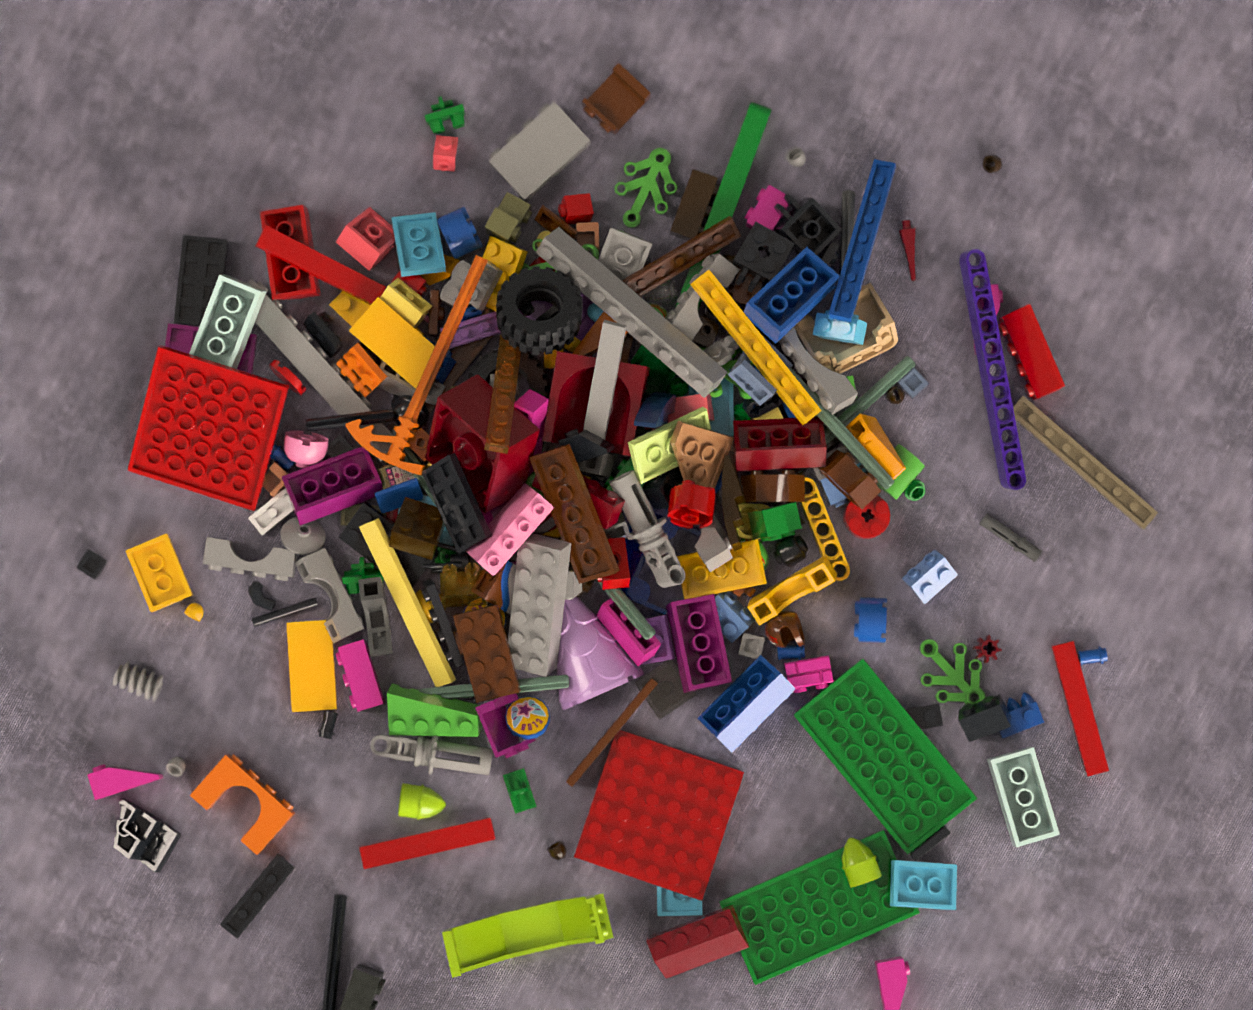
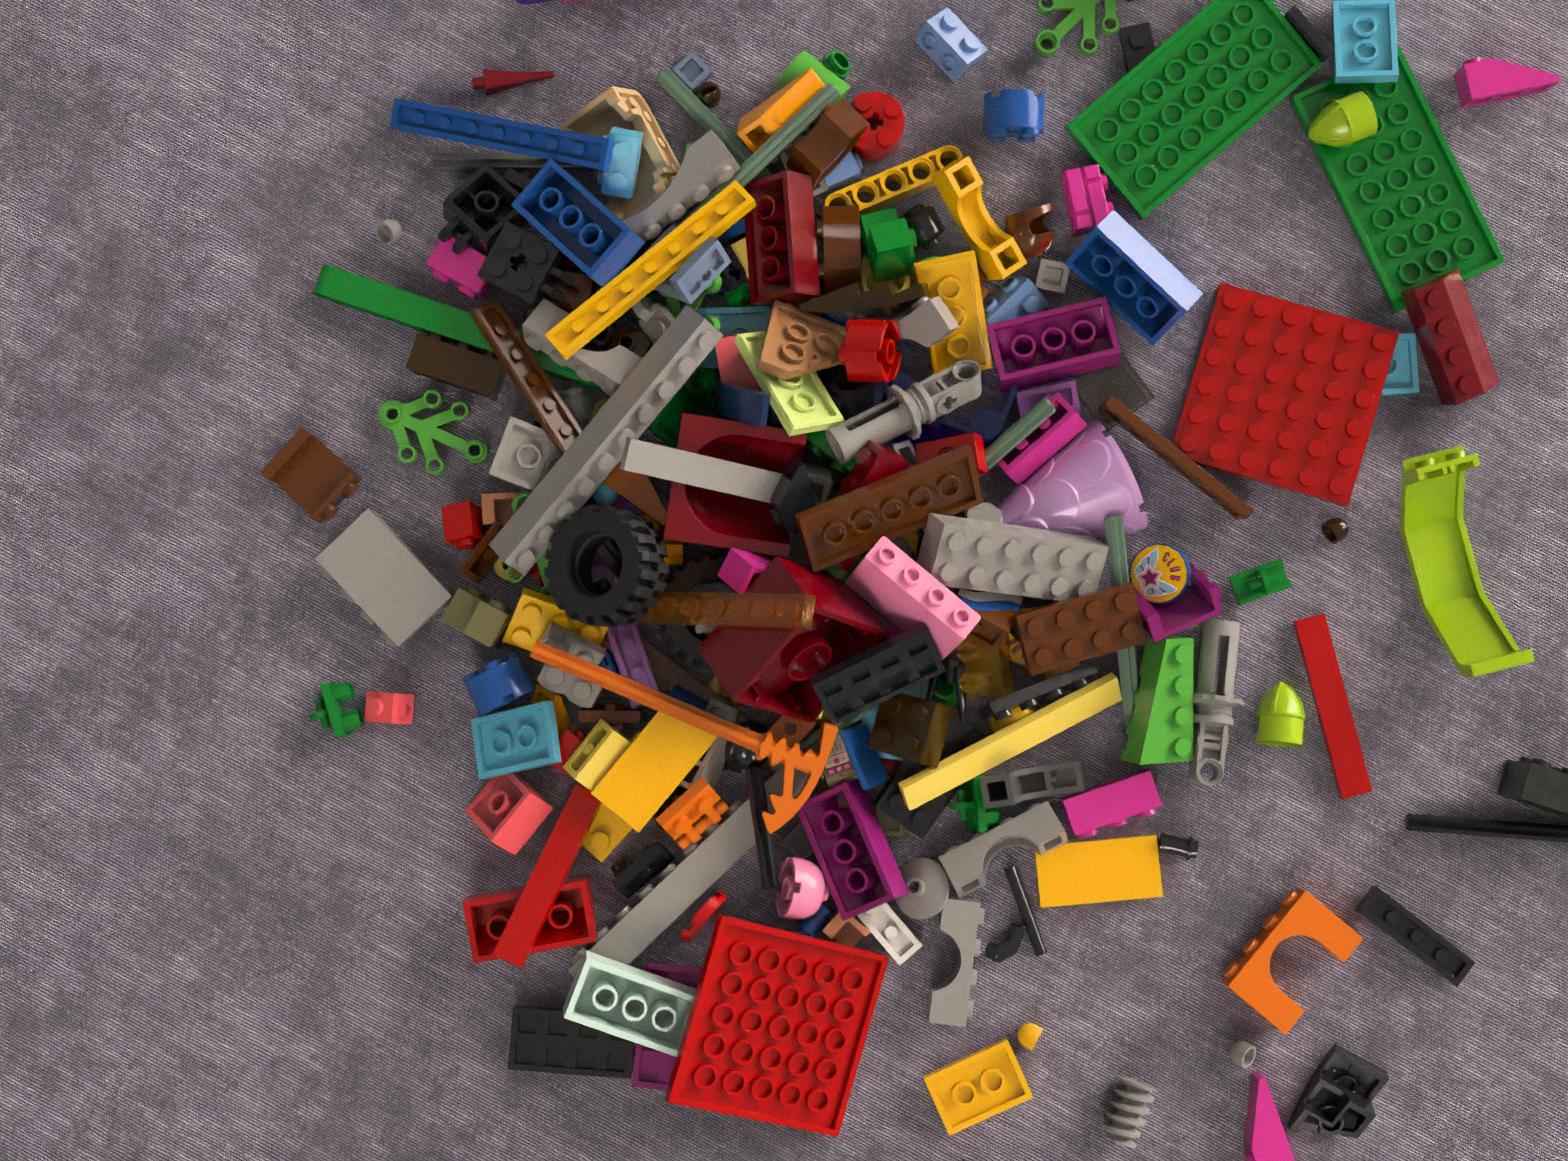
camera: 85 degrees left, 0 degrees up
(791, 652) = (1058, 222): blue pin -> none

